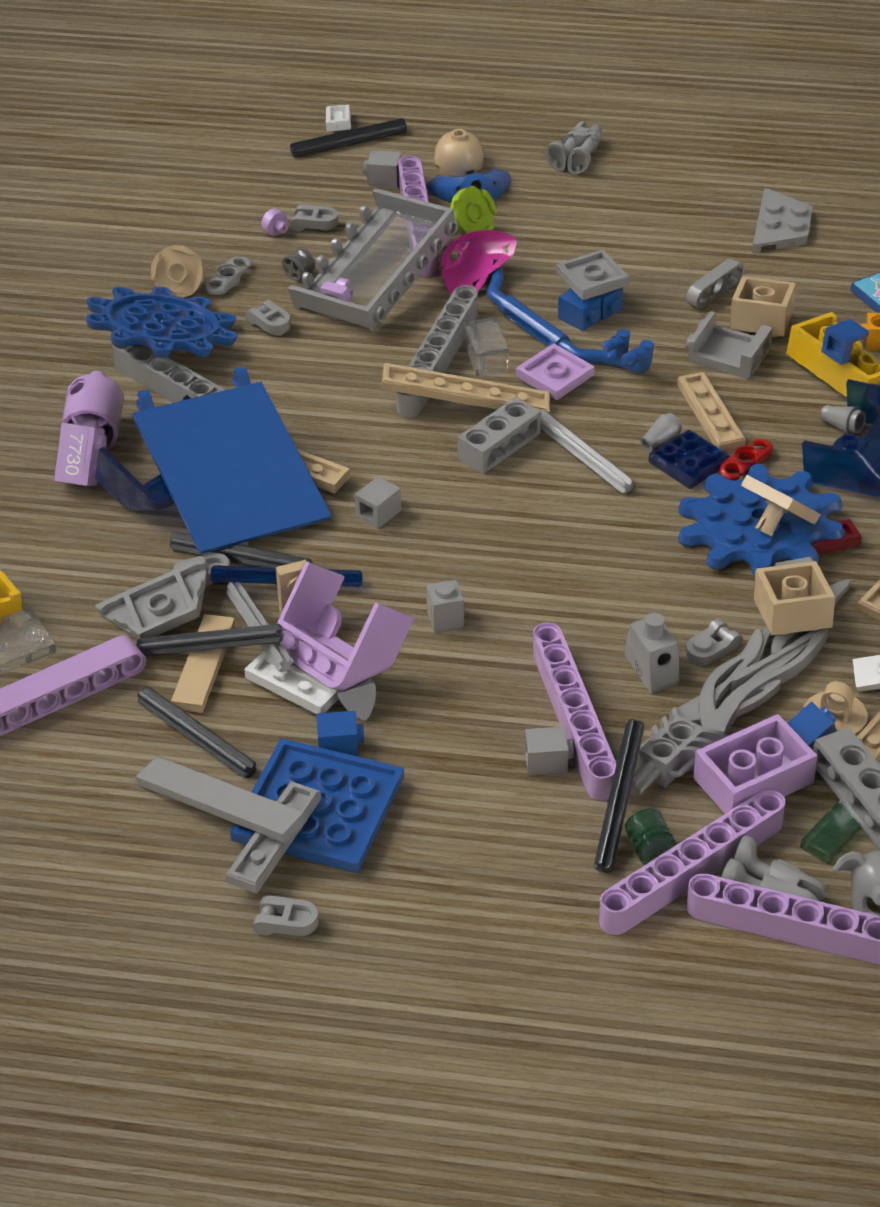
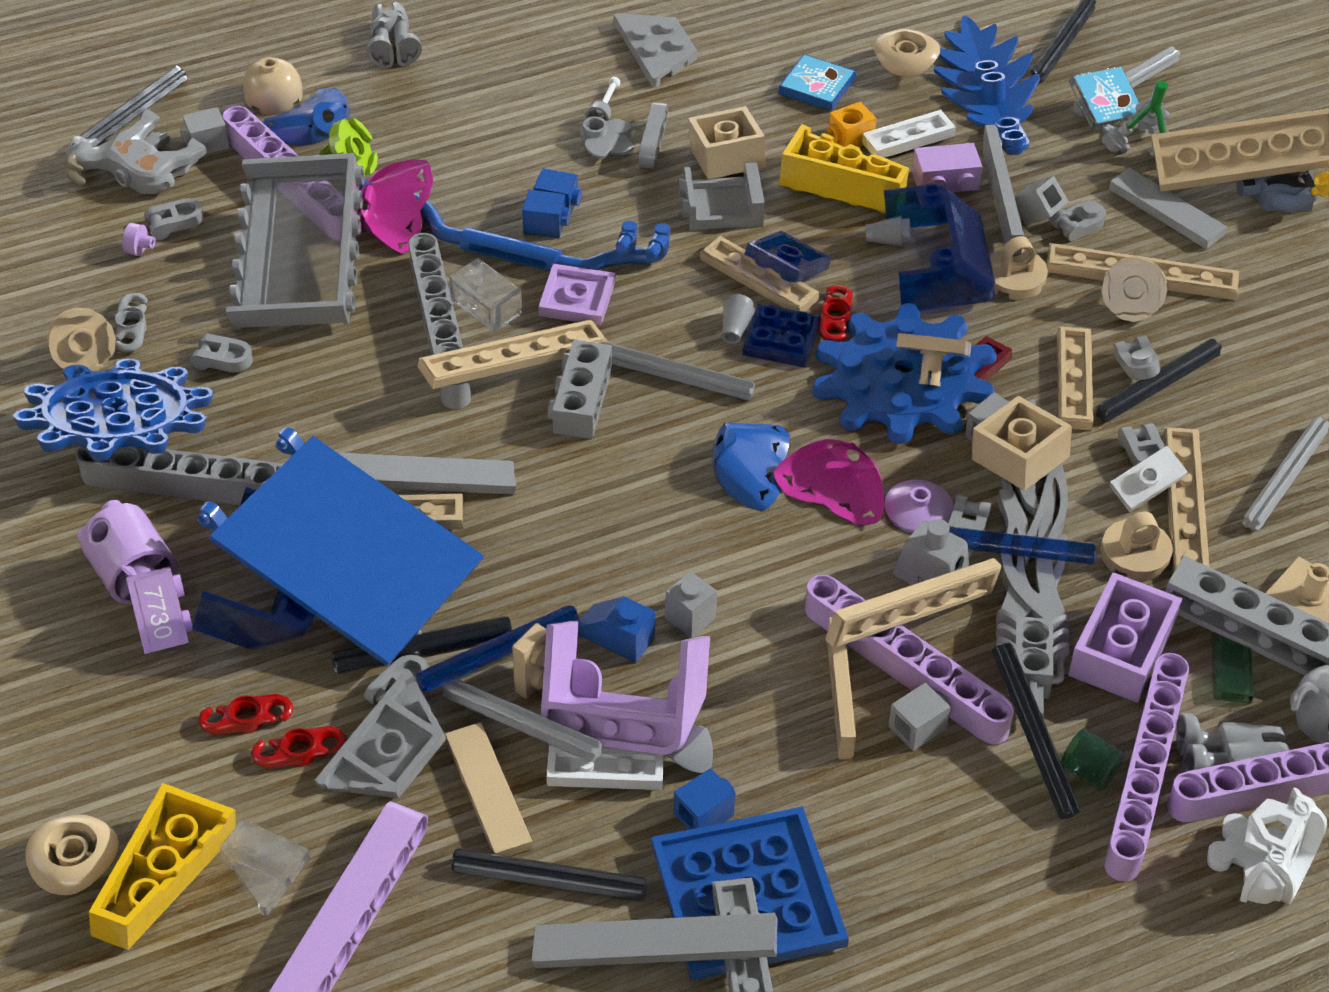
camera: 35 degrees left, 5 degrees up
(90, 582) = (285, 758): none -> red piece
(103, 546) = (231, 724): none -> red piece
(211, 640) = (489, 761): black axle -> none
(298, 263) = (204, 278): flat silver wheel -> none
(318, 168) = (134, 157): none -> light grey animal
(338, 118) = (103, 90): white plate -> none
(338, 289) = (288, 292): lavender tile -> none
(341, 447) = (438, 473): none -> light grey tile
(378, 502) = (522, 519): light grey brick -> none
(384, 592) = (619, 627): none -> blue slope
(504, 707) = (842, 700): none -> tan tile
(580, 526) = (745, 458): none -> blue piece
(592, 274) = (543, 172): light grey plate -> none
(601, 667) = (912, 602): none -> tan tile
(634, 567) = (834, 479): none -> dark pink piece
(678, 272) = (606, 137): none -> light grey plate
(687, 615) = (916, 502): none -> lavender dish
(689, 253) = (601, 108): none -> hinge
(728, 668) = (1027, 545): none -> clear blue axle
(732, 967) = (1271, 858): none -> white piece
(739, 403) = (787, 256): none -> clear blue plate
(813, 723) = (1143, 565): blue brick -> none
(840, 339) = (853, 151): blue panel -> none

